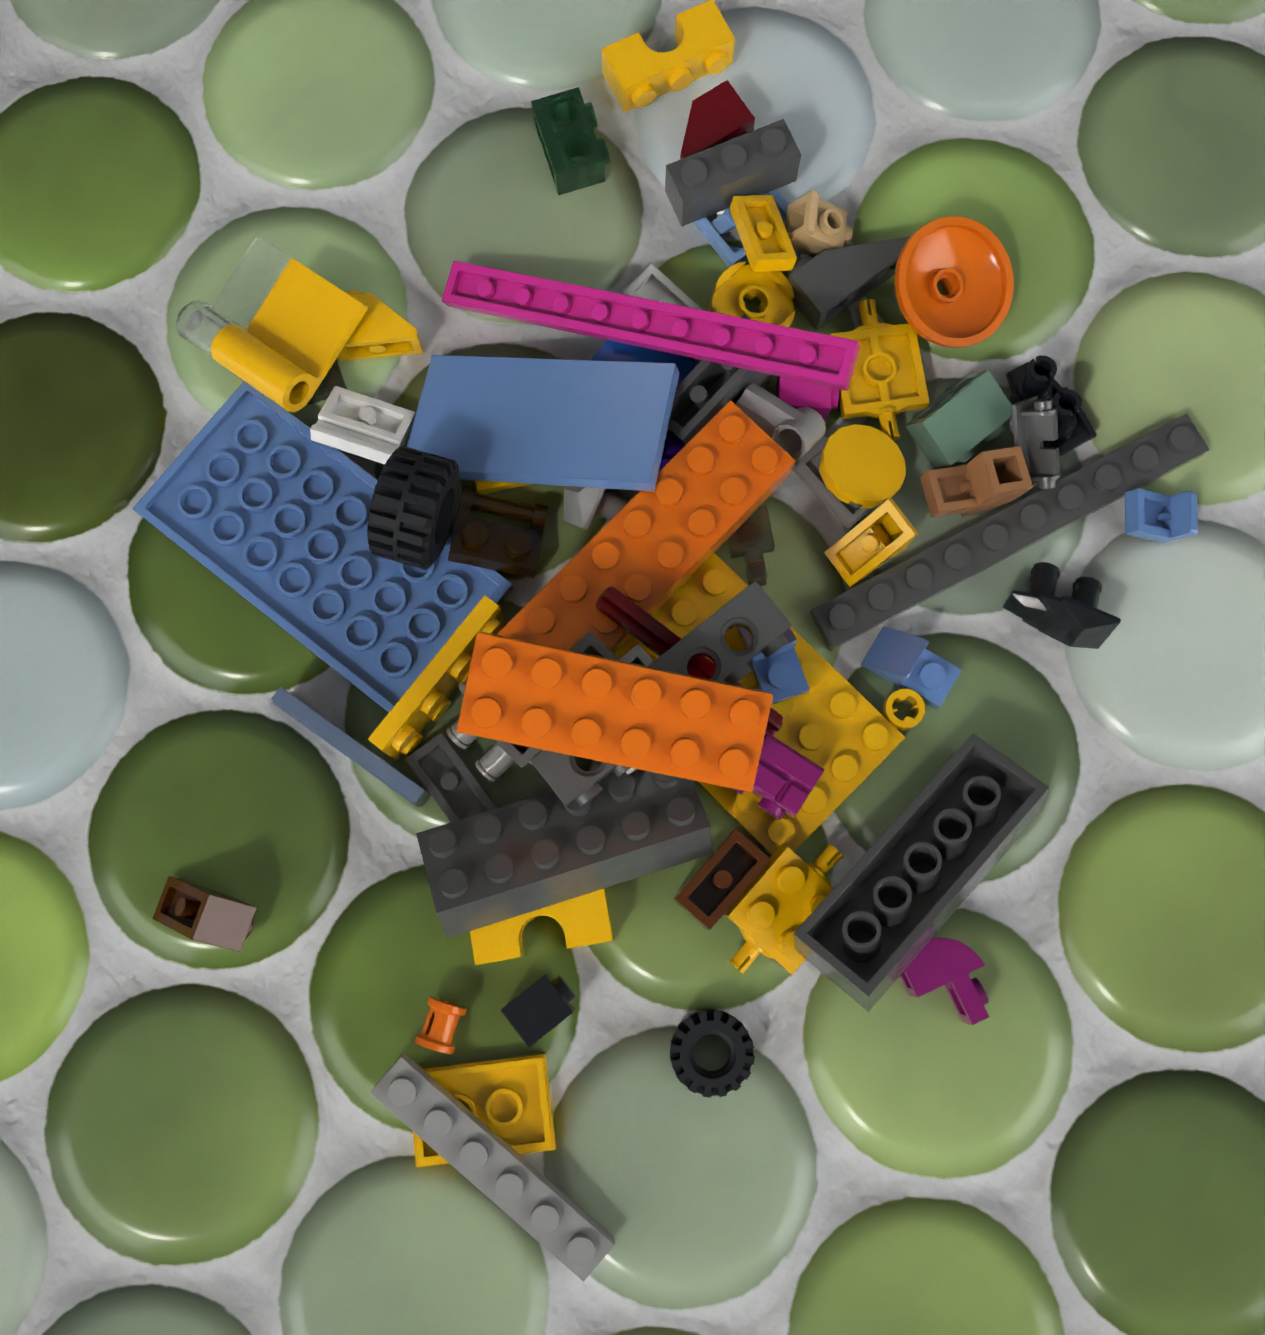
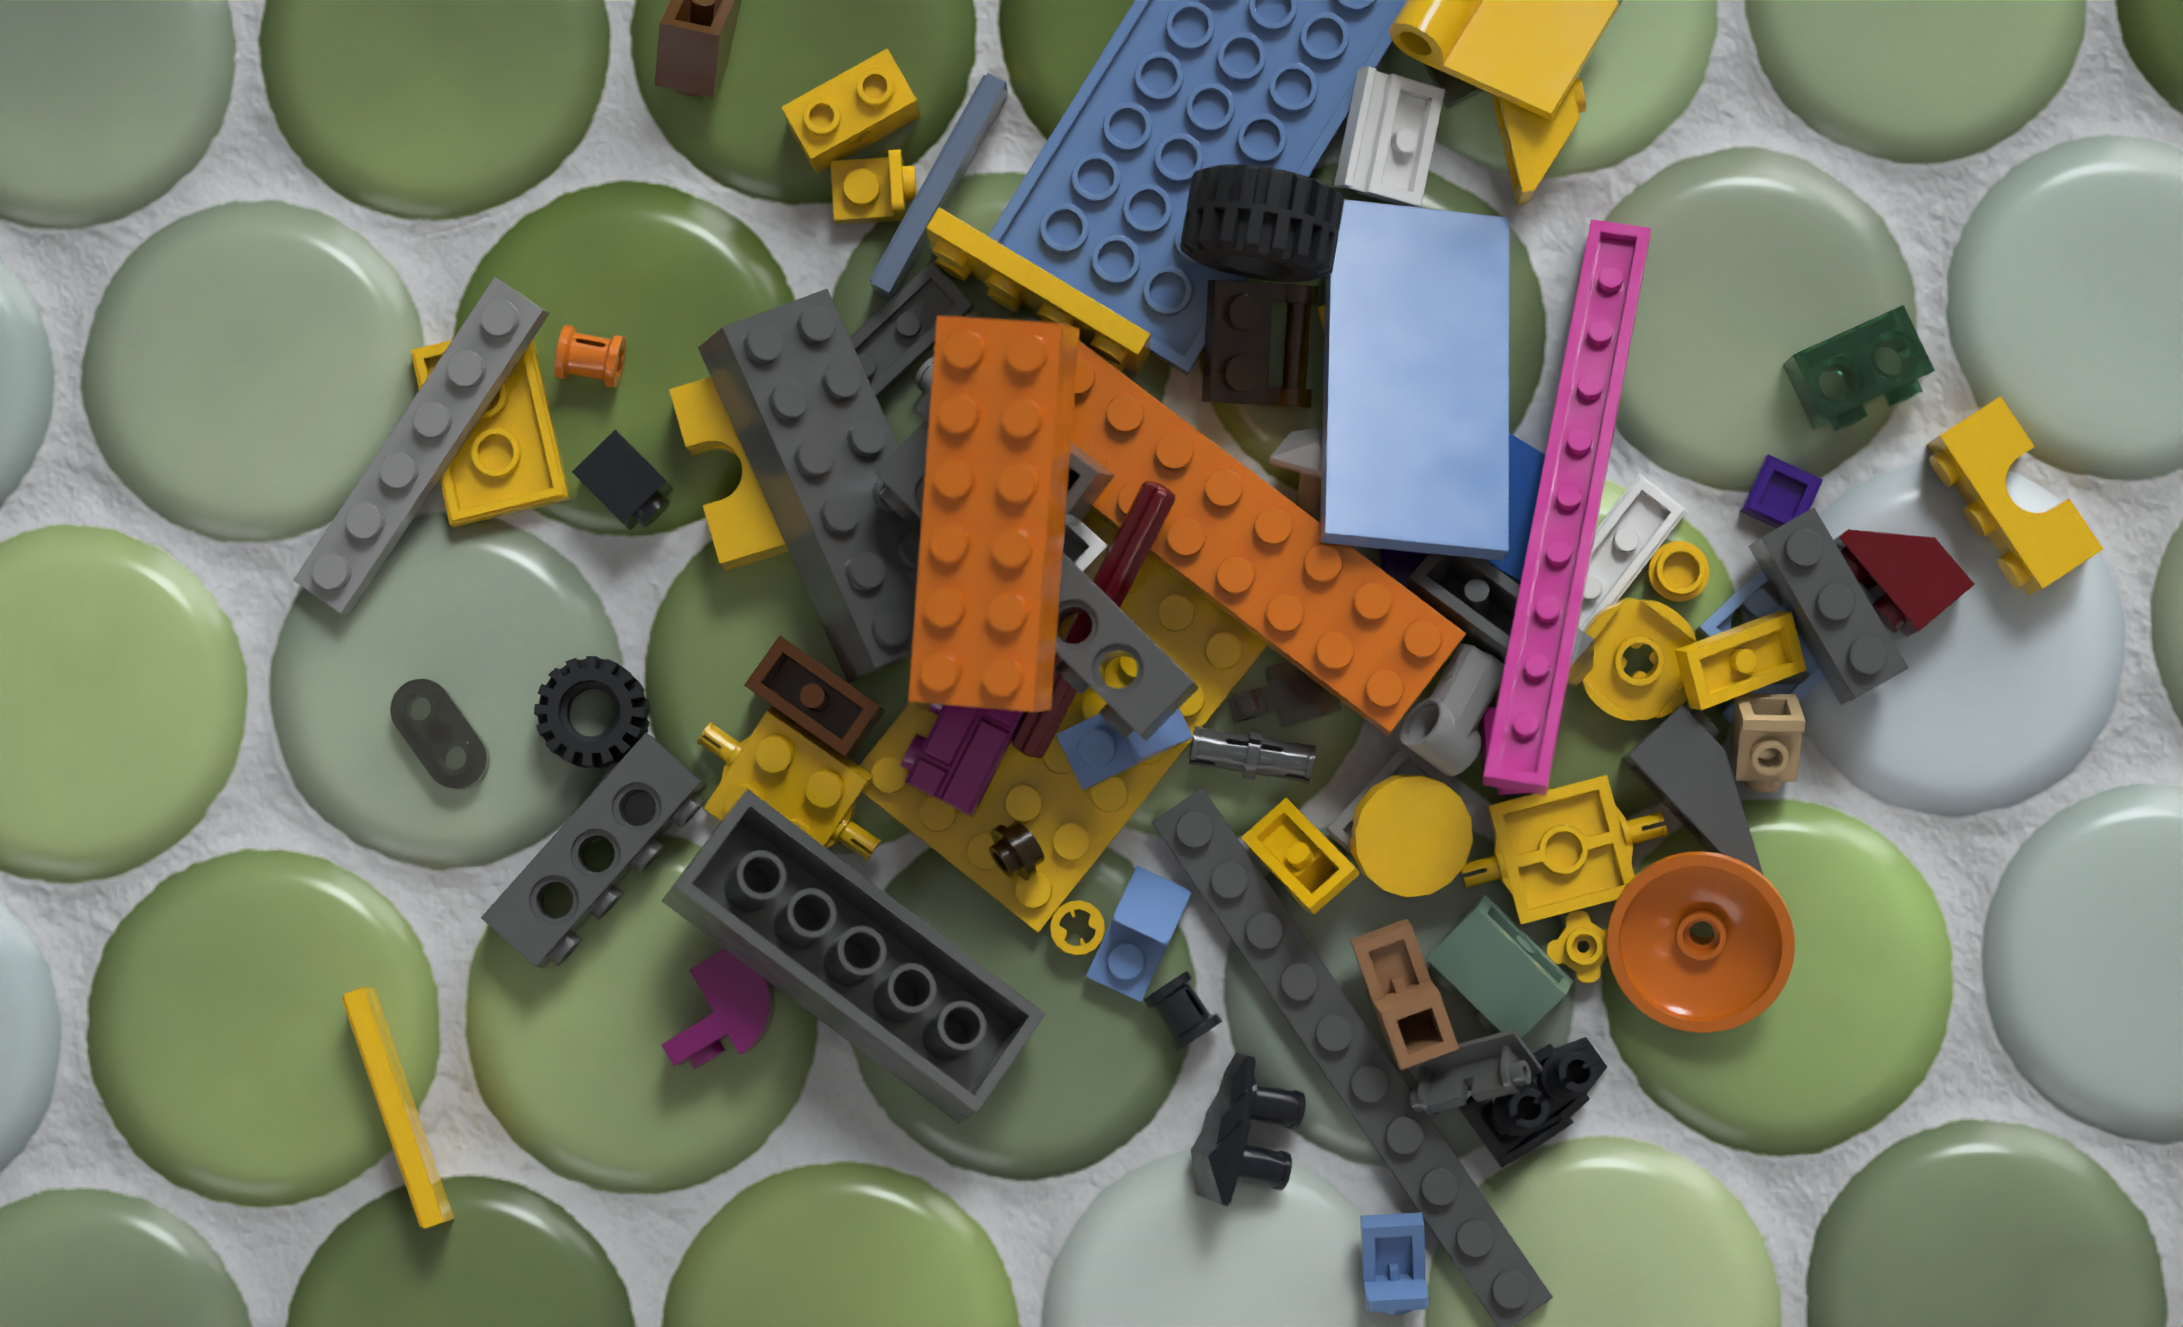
camera: 85 degrees right, 5 degrees up
(283, 805) = (851, 111): none -> yellow brick
(344, 797) = (872, 189): none -> yellow bracket
(646, 204) = (1780, 492): none -> dark purple tile
(693, 274) = (1678, 571): none -> yellow plate
(712, 1171) = (439, 733): none -> clear smoke plate
(792, 570) = (1252, 754): none -> dark grey pin
(850, 742) = (1015, 850): none -> dark brown plate
(862, 1124) = (520, 909): none -> dark grey brick
(941, 377) = (1565, 950): none -> yellow plate
(971, 641) = (1182, 1011): none -> black bush
(1001, 1239) = (397, 1107): none -> yellow tile

